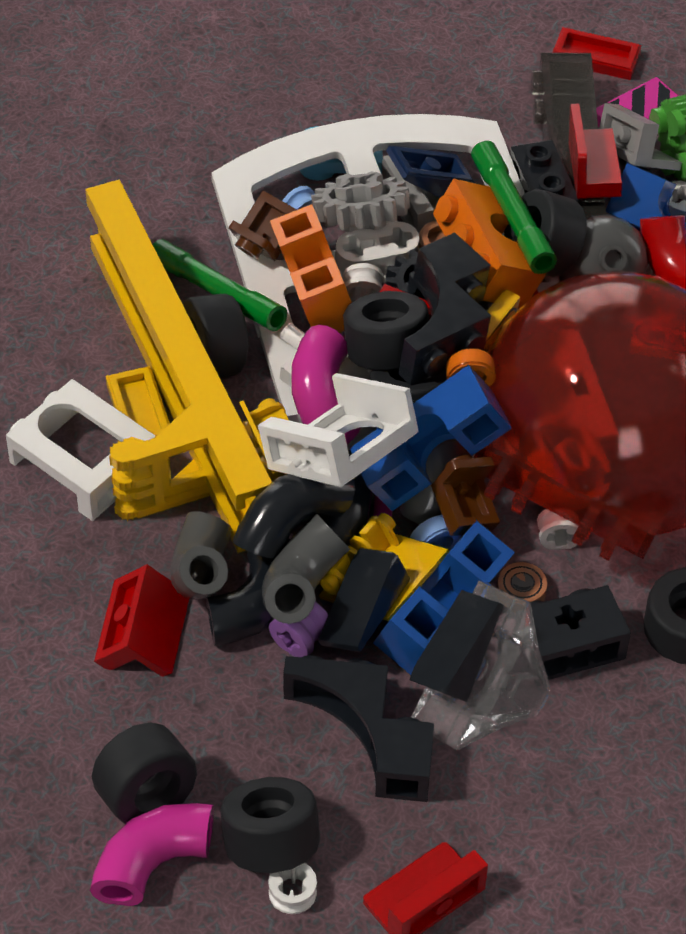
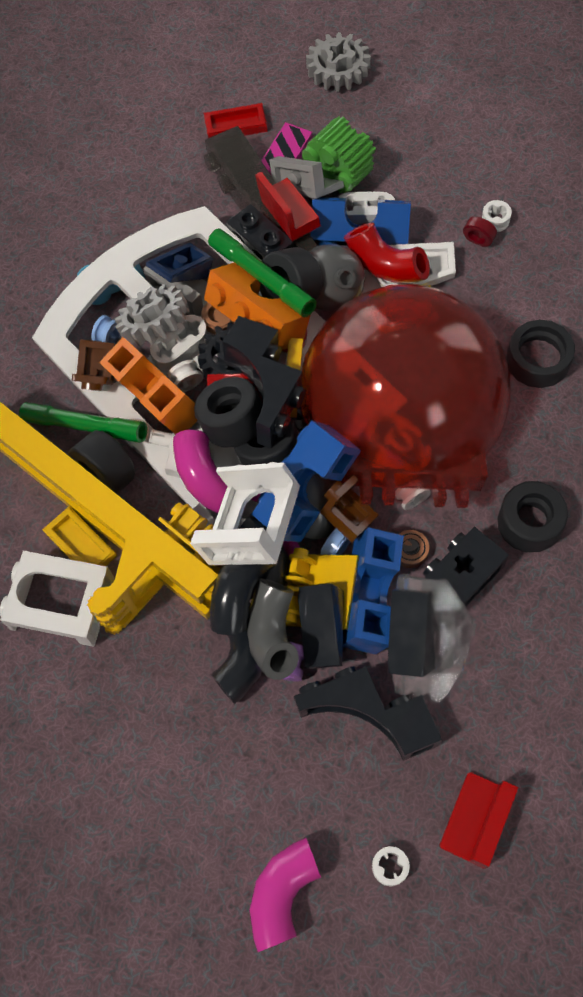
camera: 20 degrees left, 15 degrees up
(142, 622) = (175, 713): red panel -> none
(143, 771) = (247, 844): black tyre -> none
(198, 558) = (188, 648): dark grey cylinder -> none
(270, 824) = (367, 853): black tyre -> none
(478, 359) = (303, 416): orange tile -> none

